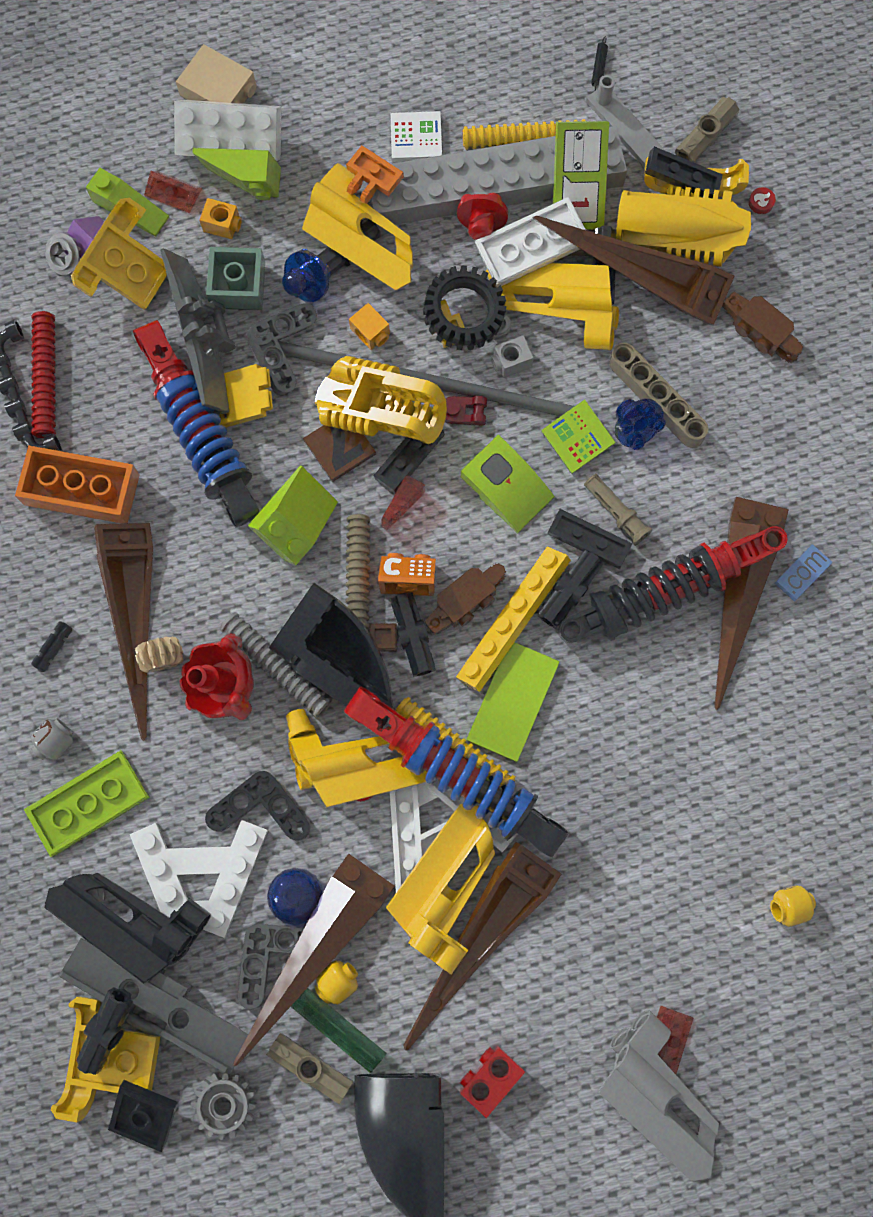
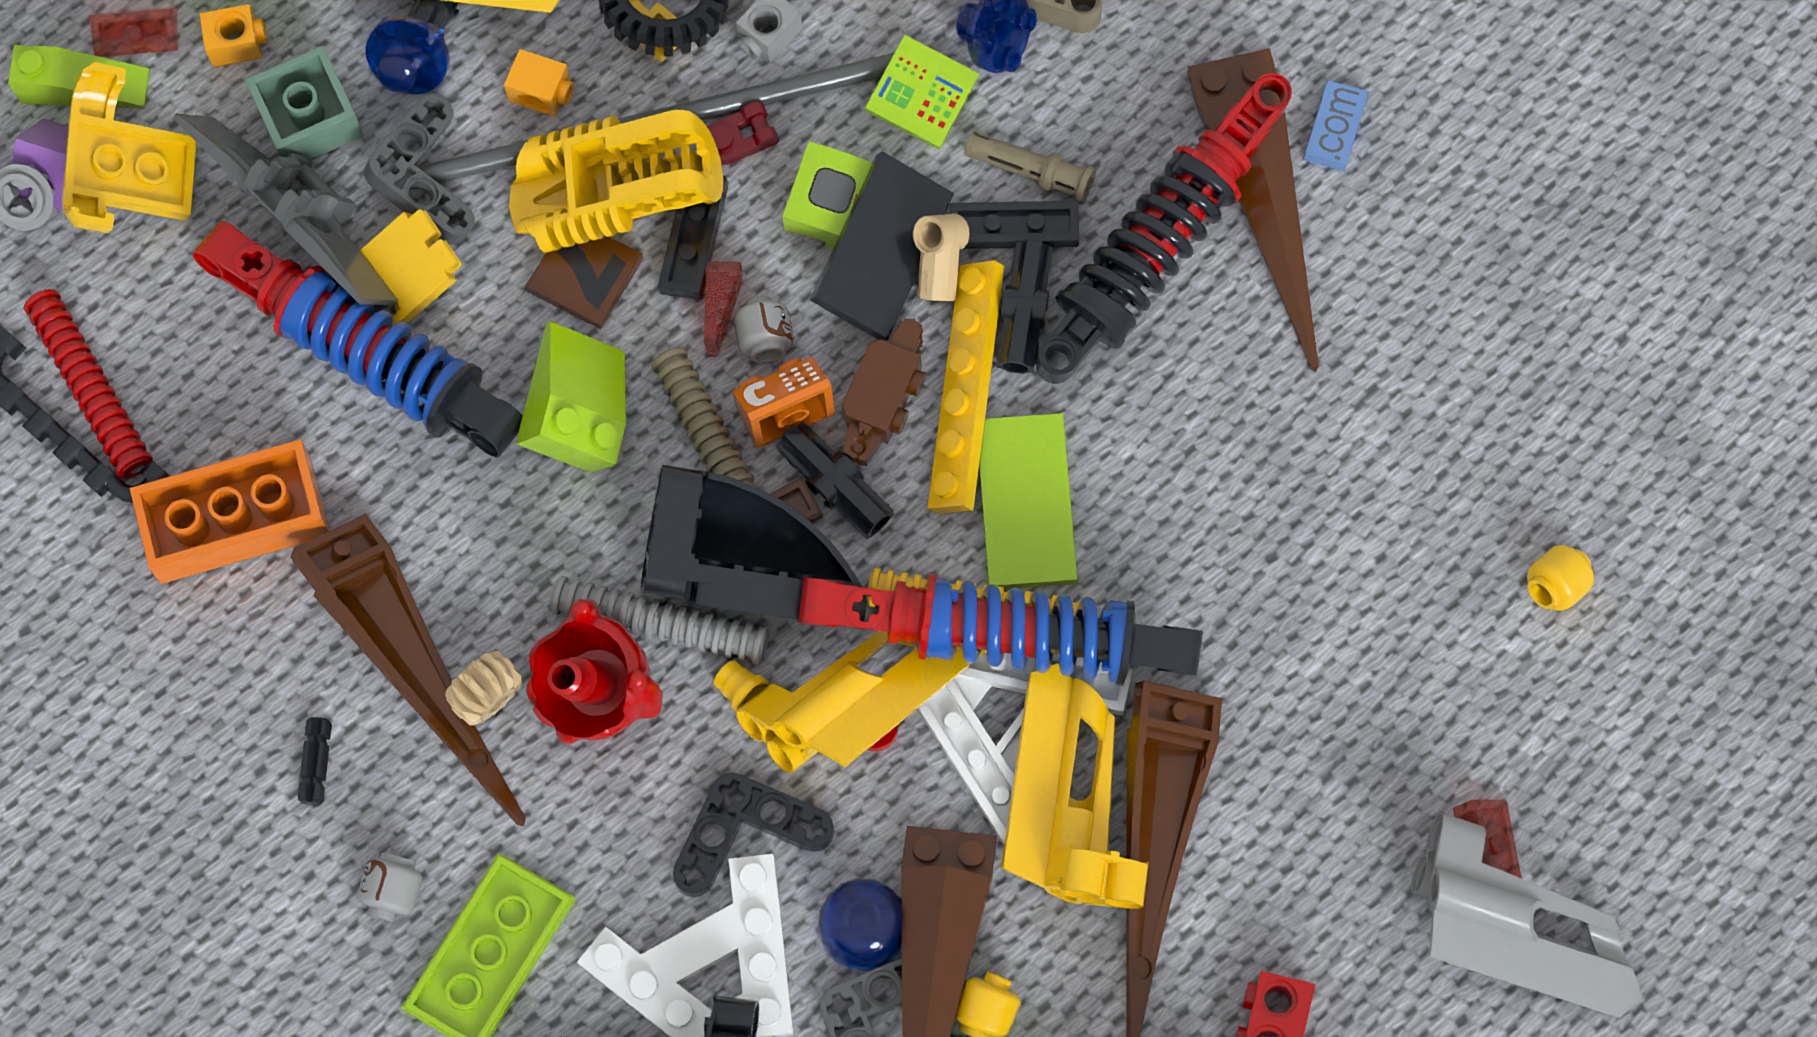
camera: 25 degrees left, 5 degrees down
(418, 529) = (763, 329): none -> light grey head
(508, 515) = (876, 251): none -> black tile
(540, 529) = (939, 254): none -> tan piece

